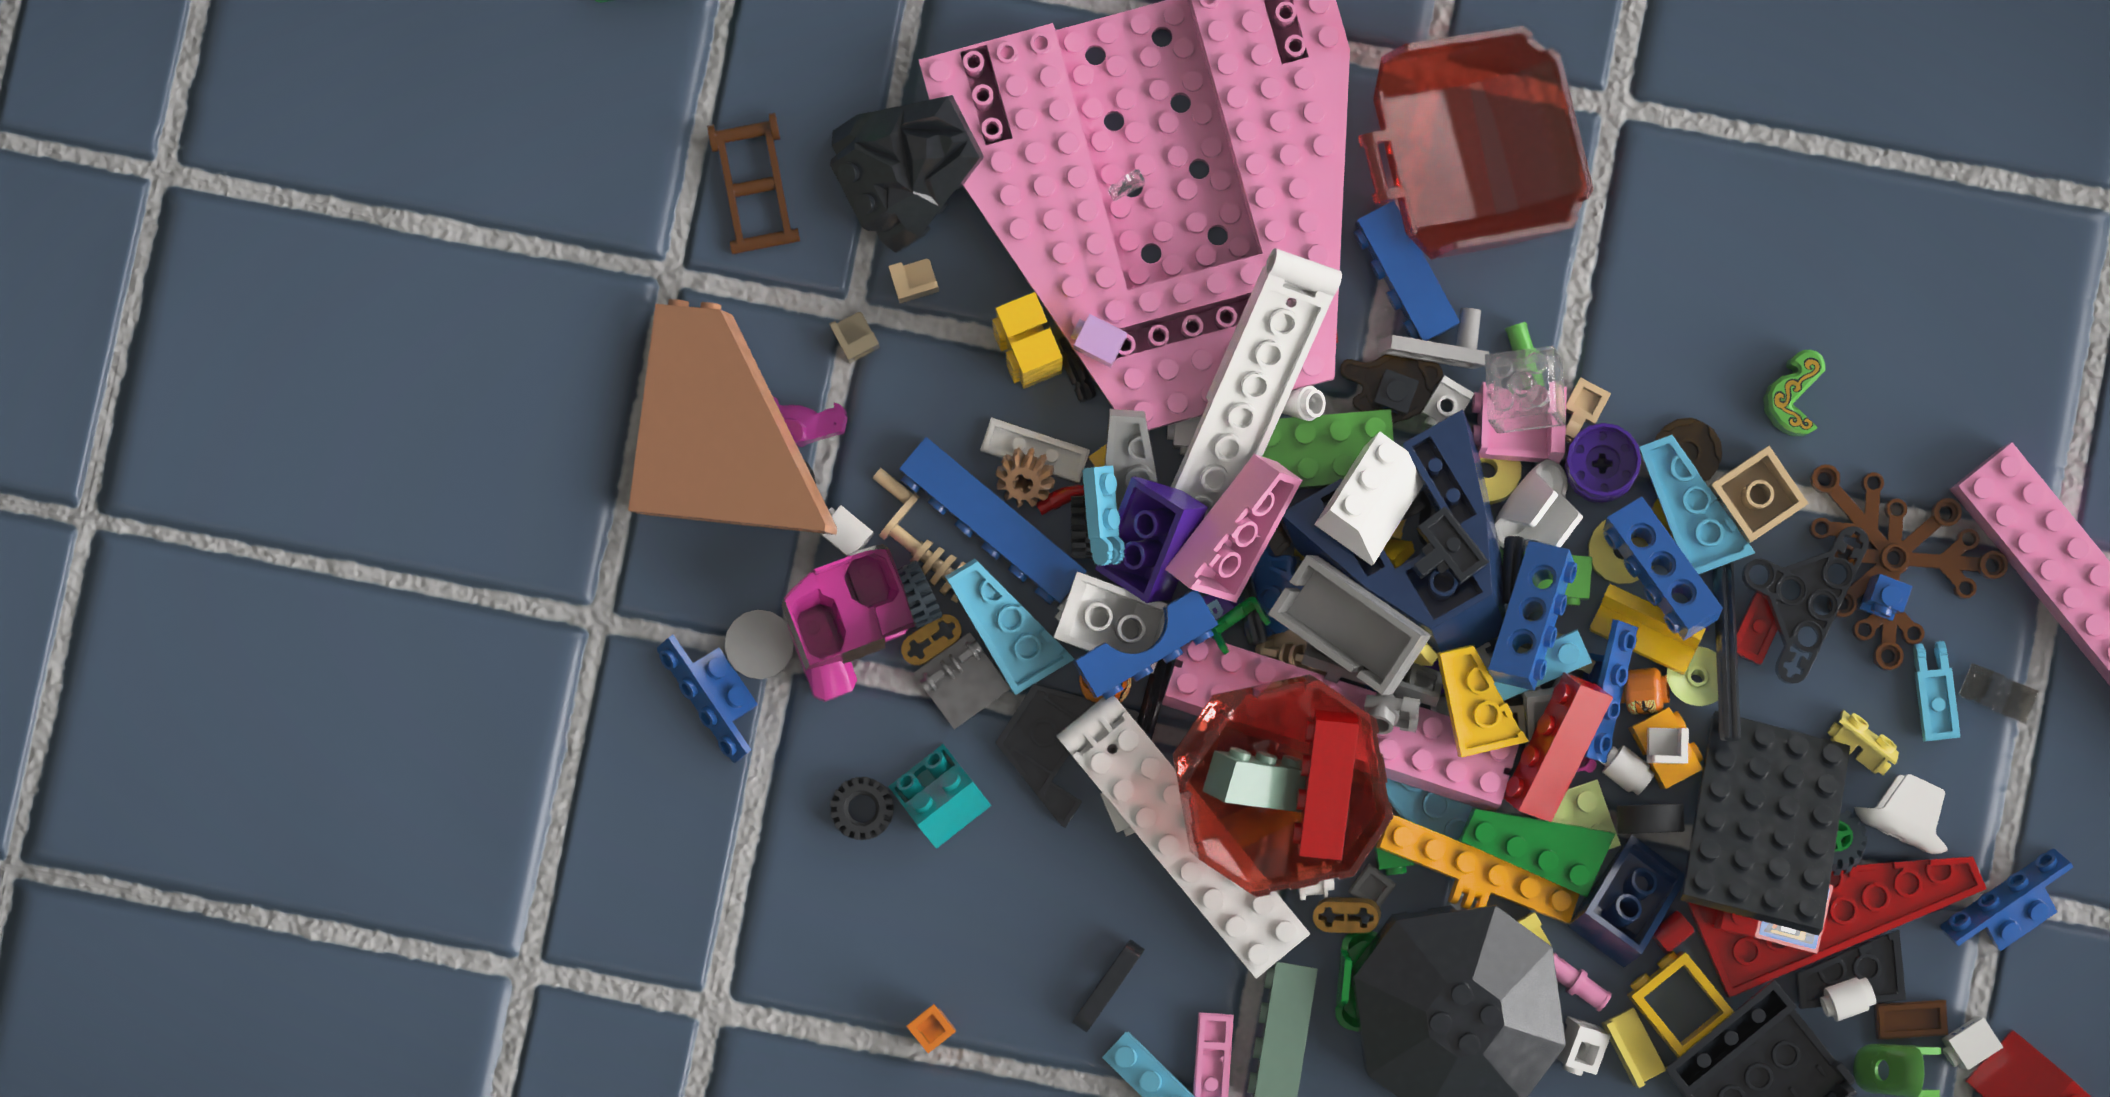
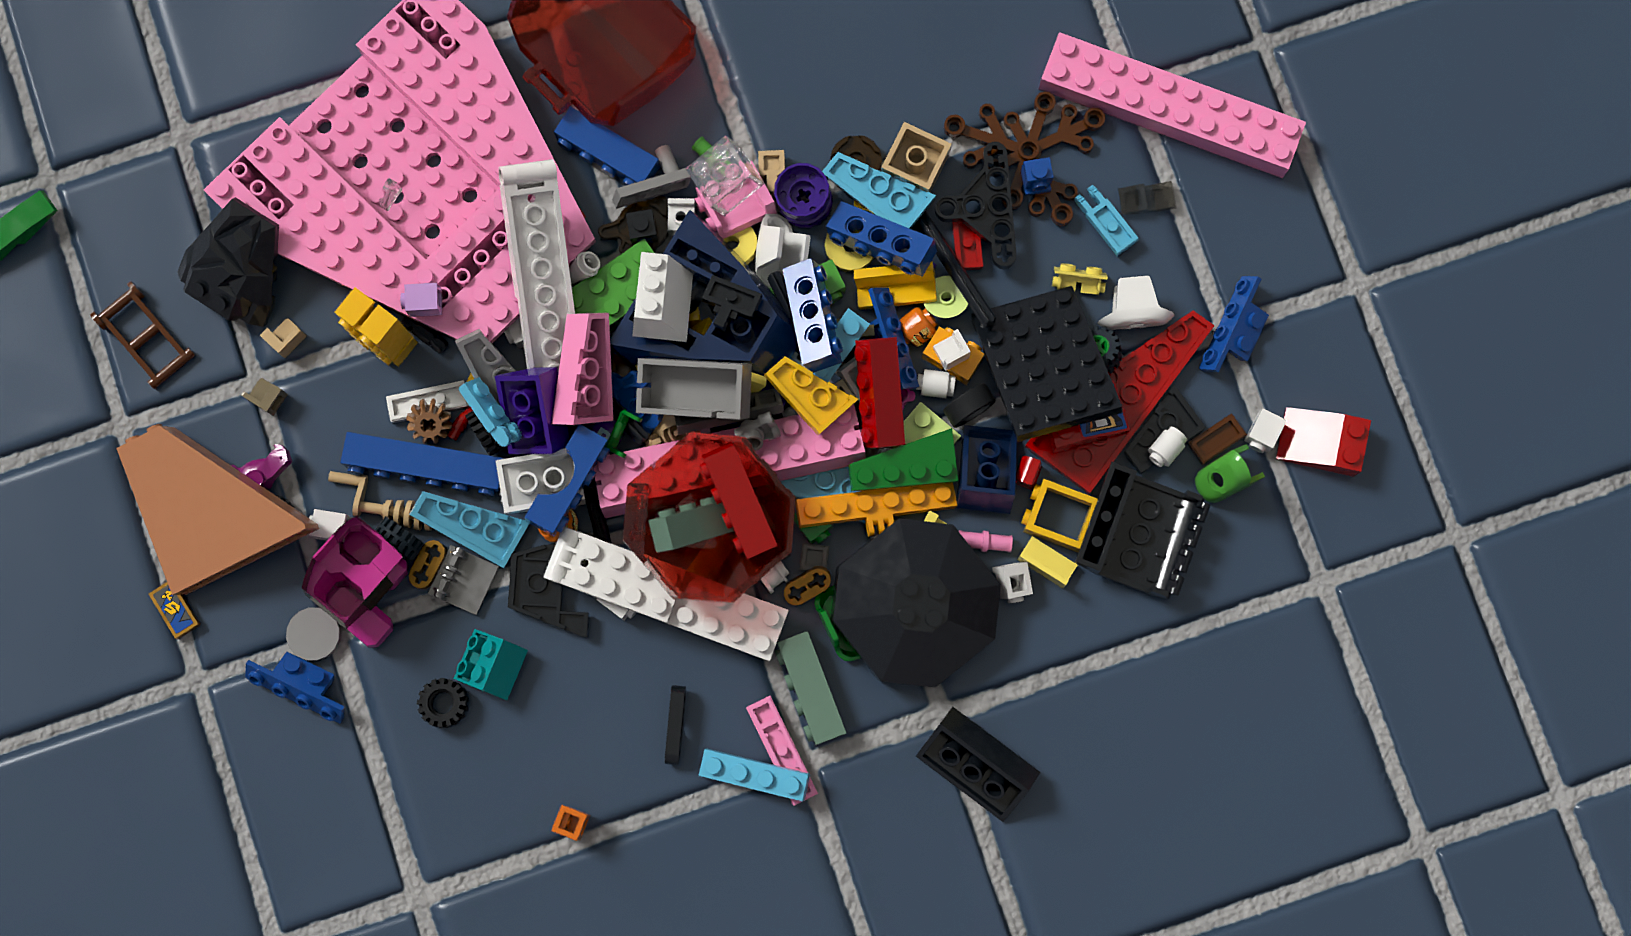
camera: 25 degrees left, 5 degrees down
(618, 526) = (174, 611): none -> tile
(1784, 391) = (895, 85): bright green animal -> none

